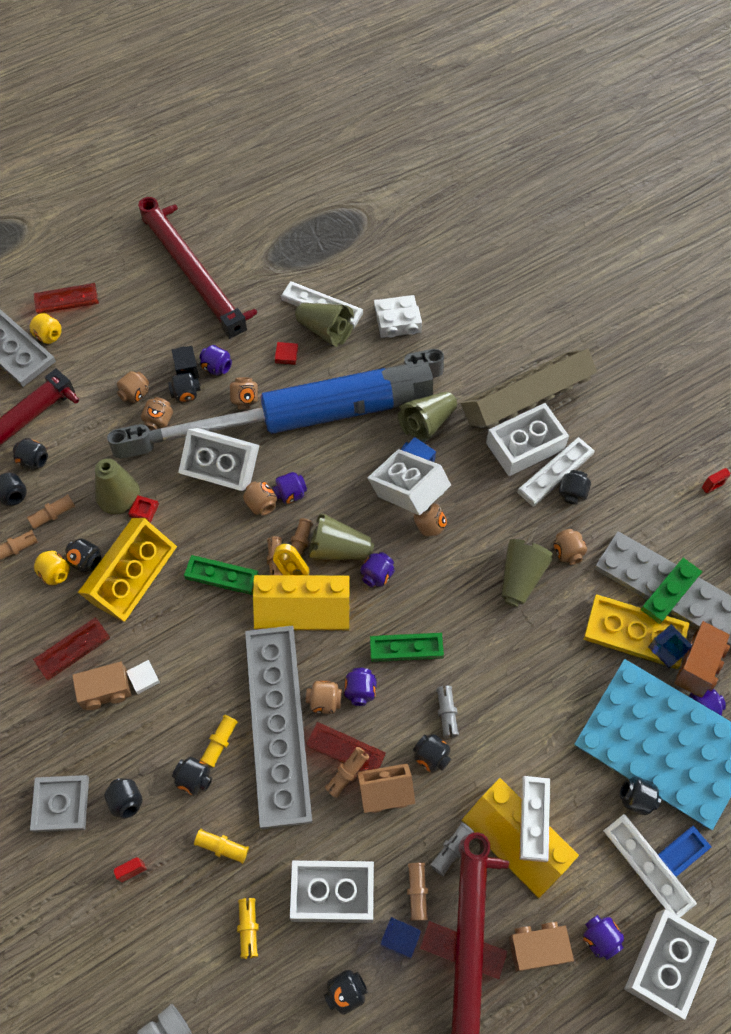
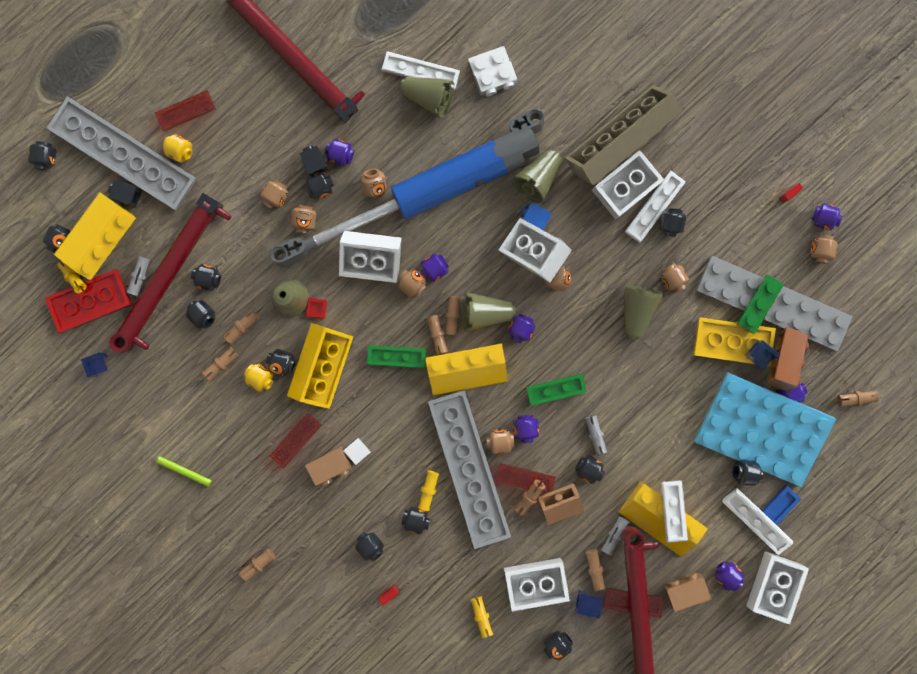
camera: 10 degrees left, 25 degrees up
(59, 803) = (324, 558): light grey plate -> none
(221, 846) = (449, 565): yellow pin -> none
(286, 353) = (400, 131): red tile -> none
(290, 561) = (451, 340): yellow plate -> none

